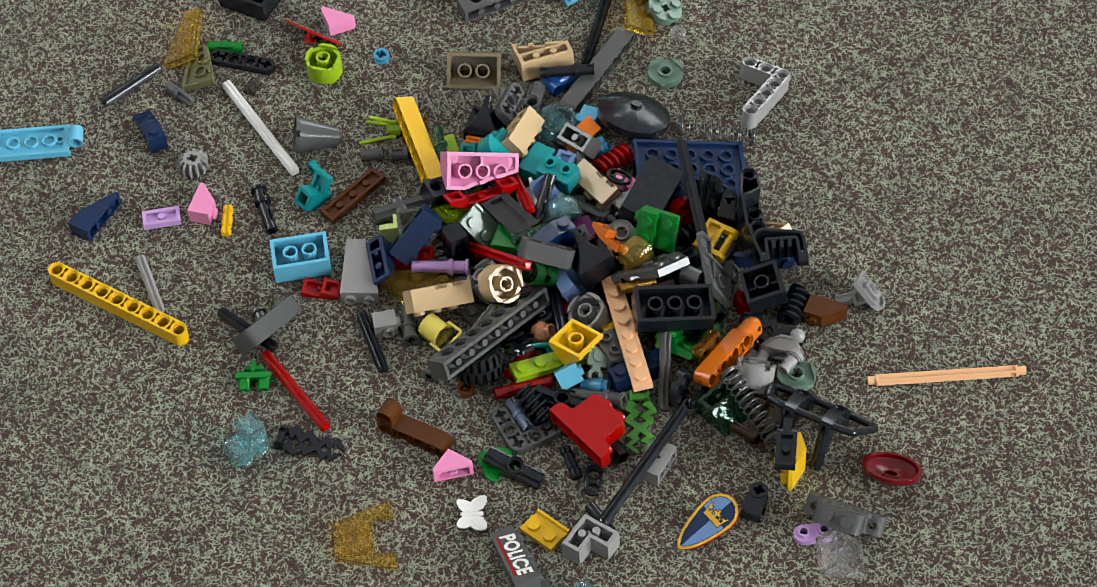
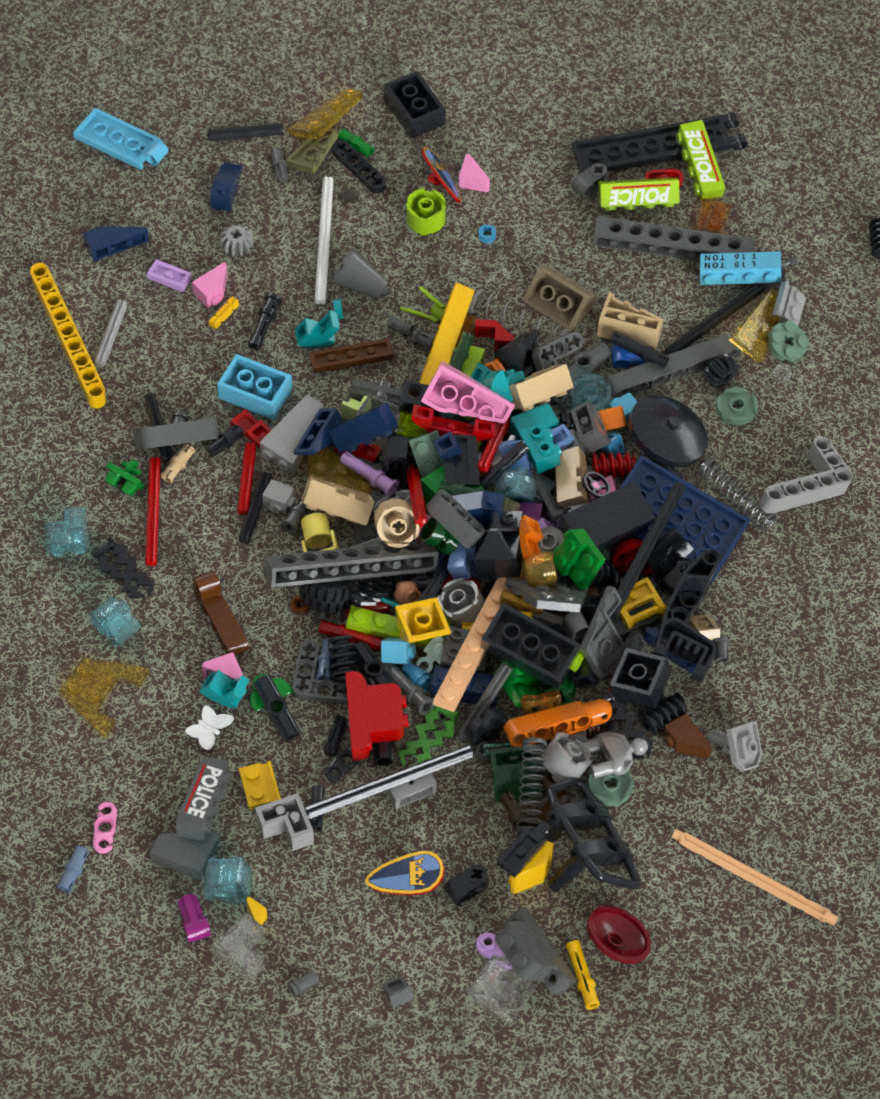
camera: 30 degrees right, 5 degrees up
(285, 345) = (177, 463): none -> tan pin
(308, 308) = (225, 440): none -> black axle
(338, 481) = (115, 621): none -> clear light blue brick
(347, 326) = (246, 478): none -> red axle
(454, 119) = (493, 329): none -> red slope
(462, 480) = (223, 689): none -> teal brick
(493, 208) = (447, 445): none -> dark blue slope
(635, 53) = (721, 370): none -> black gear
(894, 516) = (590, 998): none -> yellow pin

